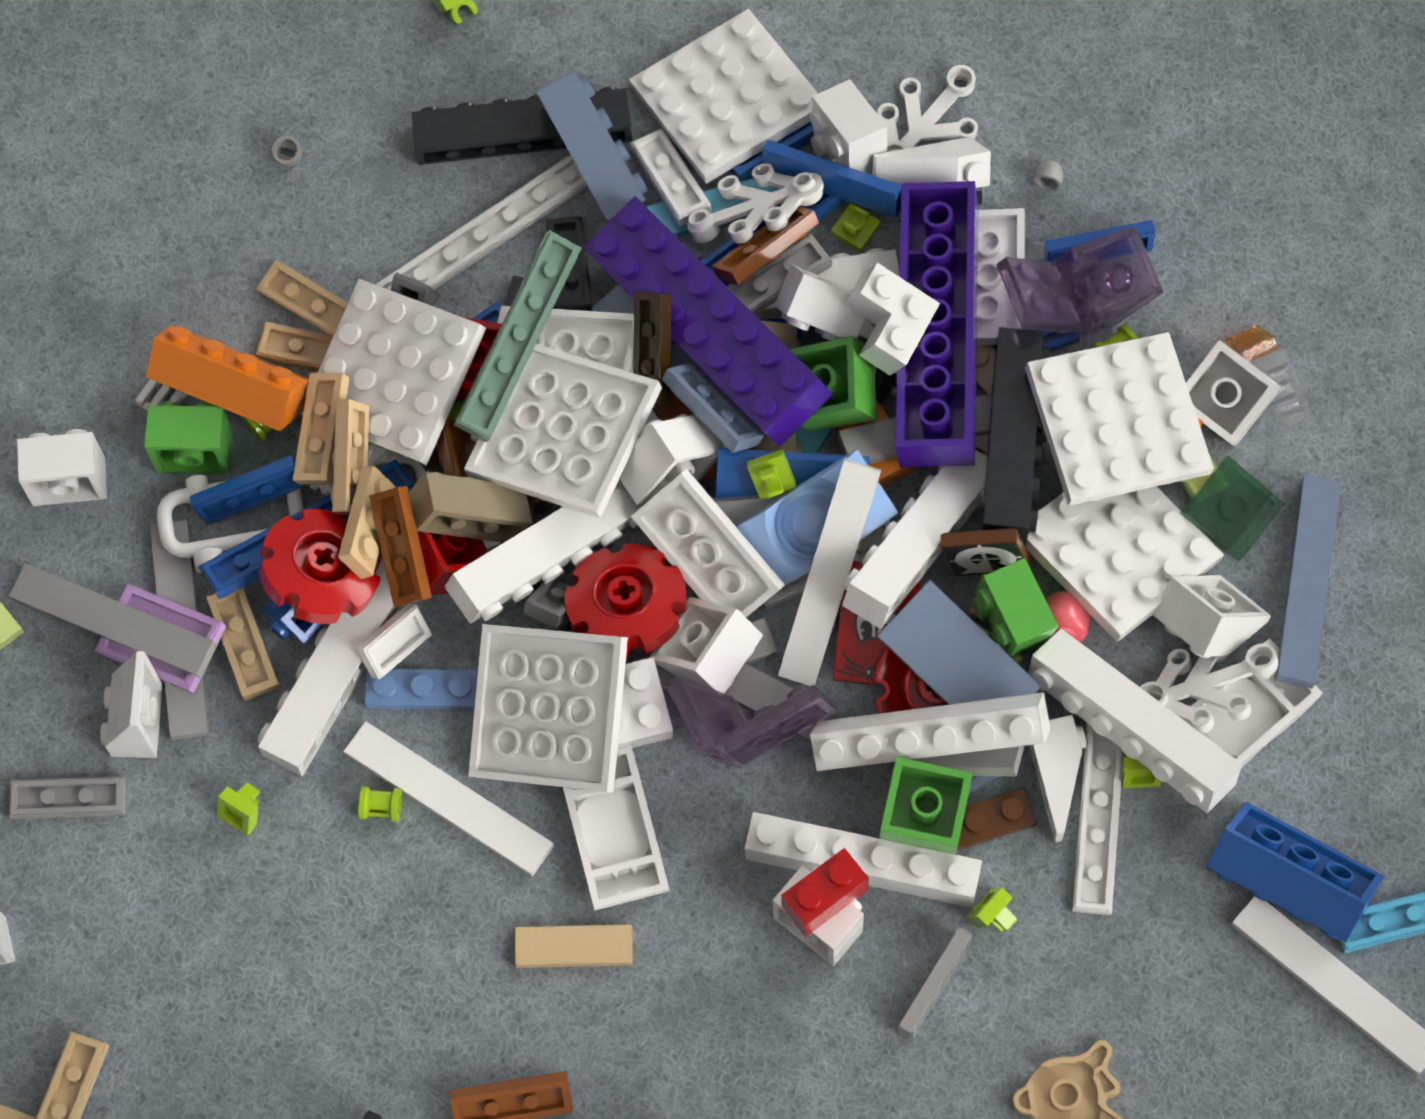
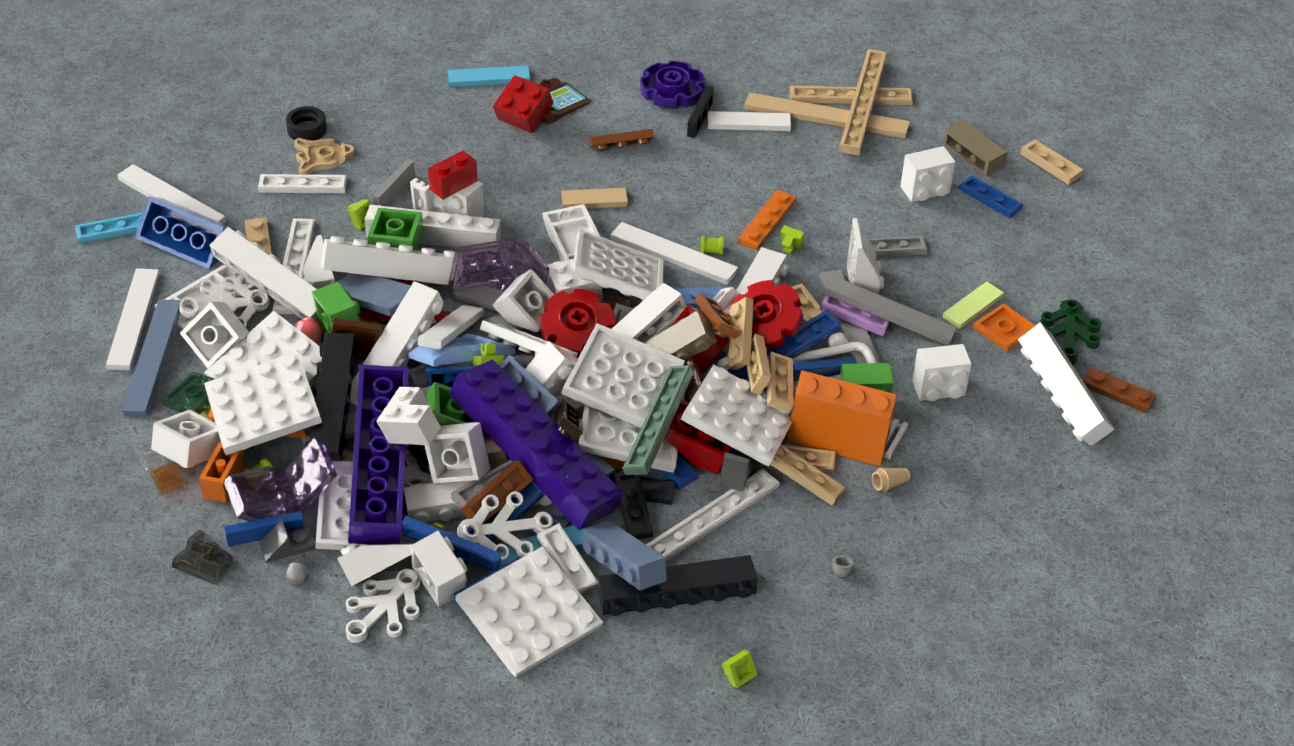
camera: 170 degrees right, 25 degrees down
(186, 298) = (889, 478): none -> tan cone
(272, 876) = (767, 220): none -> orange plate
(870, 904) = (421, 196): none -> white tile
(1072, 220) = (283, 544): none -> dark grey slope
(1102, 1013) = (302, 183): none -> white tile
(1167, 858) = (258, 232): none -> tan plate
(1170, 207) = (211, 560): none -> clear smoke slope
(1176, 316) = (216, 472): none -> orange brick
(1356, 687) = (132, 319): none -> white tile

